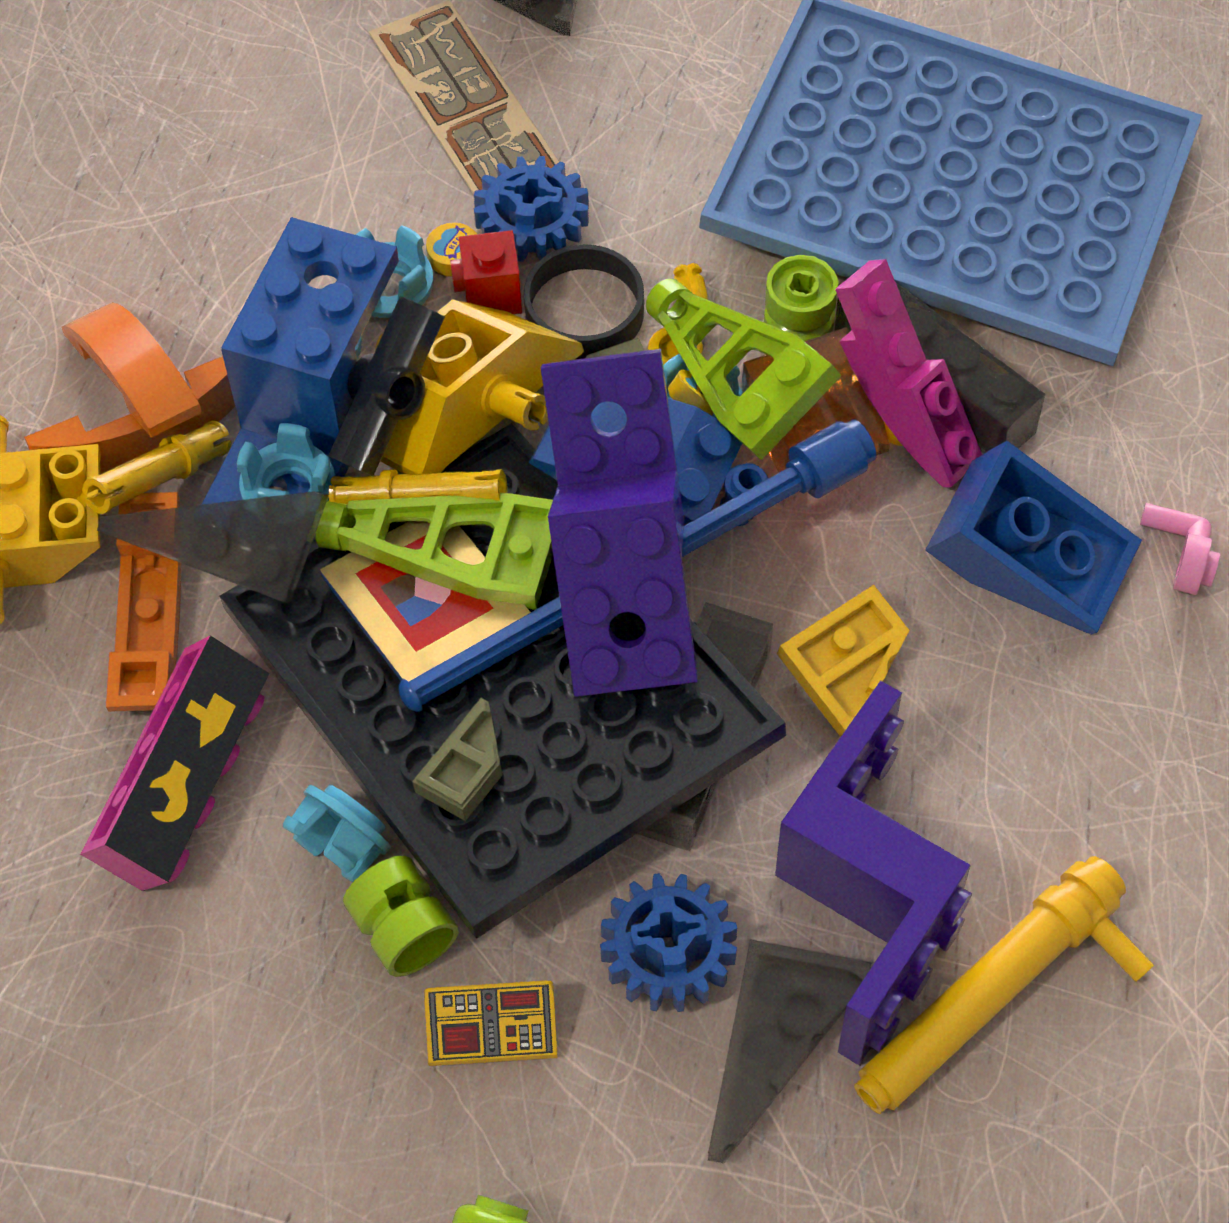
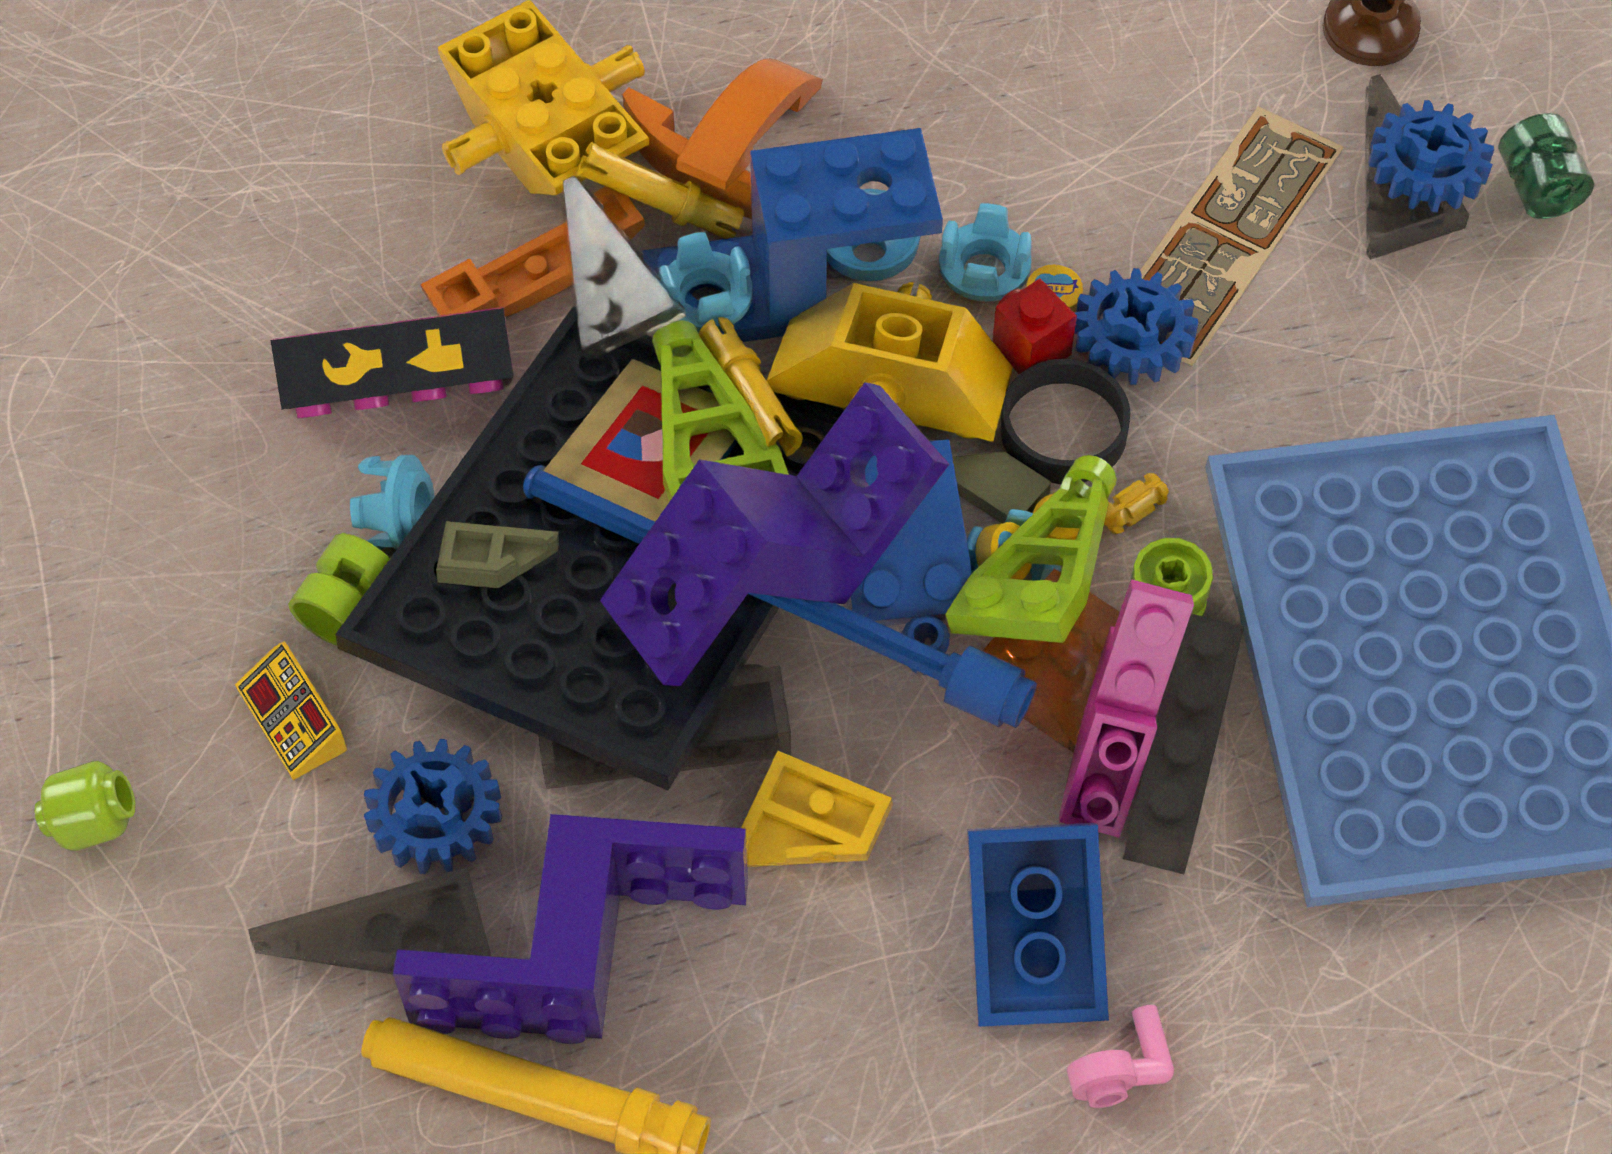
camera: 60 degrees right, 0 degrees up
(386, 386) = (843, 286): black piece -> none

